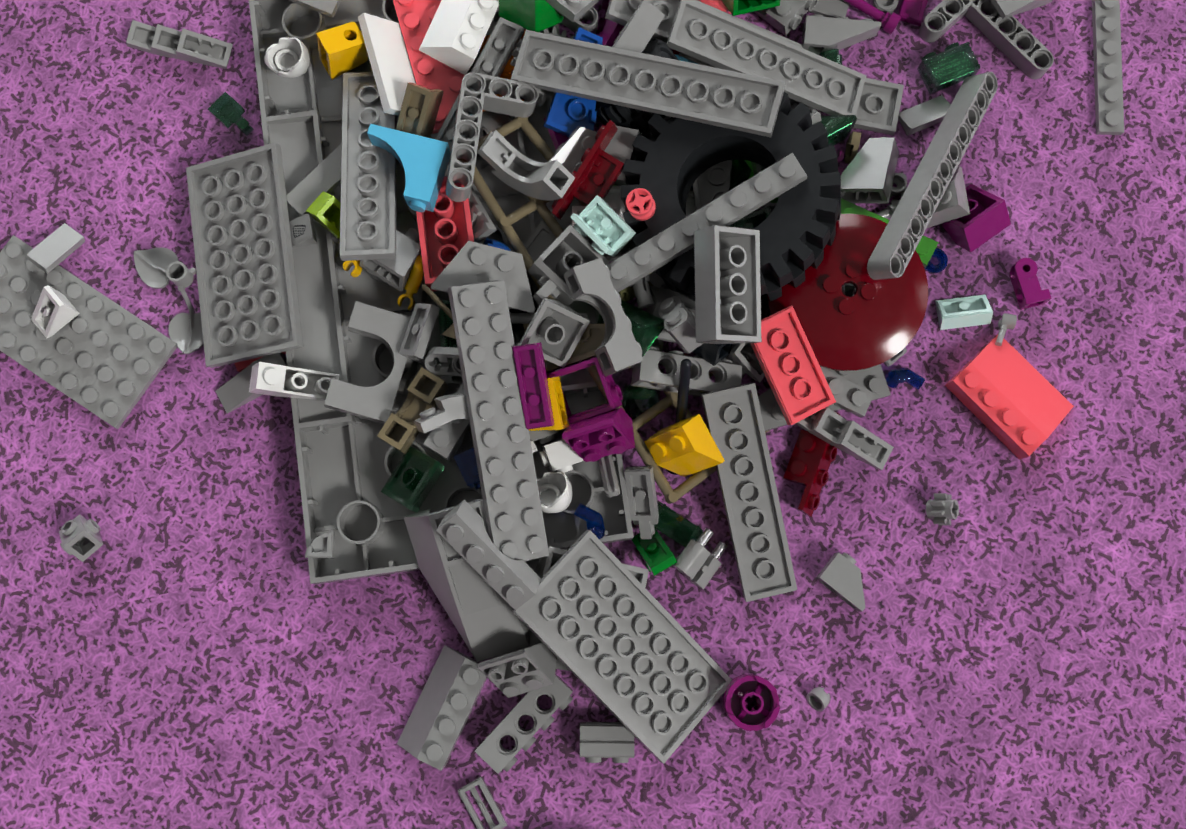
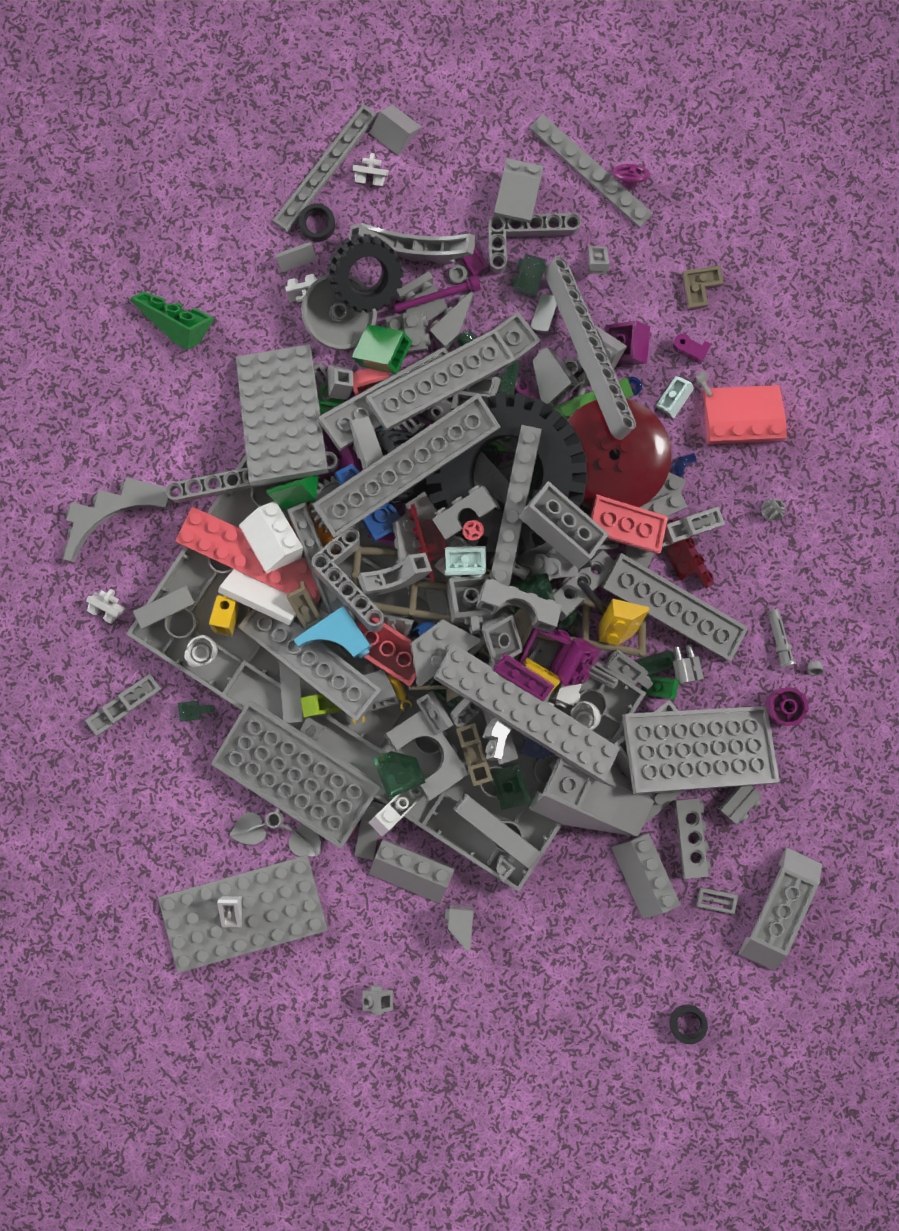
camera: 45 degrees left, 5 degrees up
(55, 248) = (189, 878): light grey tile -> none
(228, 555) = (460, 923): none -> light grey slope
(247, 459) = (411, 870): none -> light grey slope
(327, 349) = (398, 772): none -> clear green slope
(353, 504) = (496, 830): none -> light grey beam
(508, 577) = (574, 783): light grey arch -> none
(521, 670) = (664, 815): light grey slope -> none
(593, 520) = (618, 706): clear blue arm -> none
(630, 171) = (449, 520): none -> light grey arch
(810, 644) = (783, 647): none -> light grey pin
(844, 580) = (764, 597): light grey slope -> none
(852, 141) = (526, 371): dark tan tile -> none
(1025, 119) = (598, 260): none -> light grey slope
(1100, 233) = (697, 280): none -> dark tan plate
(1140, 77) = (630, 176): none -> magenta piece

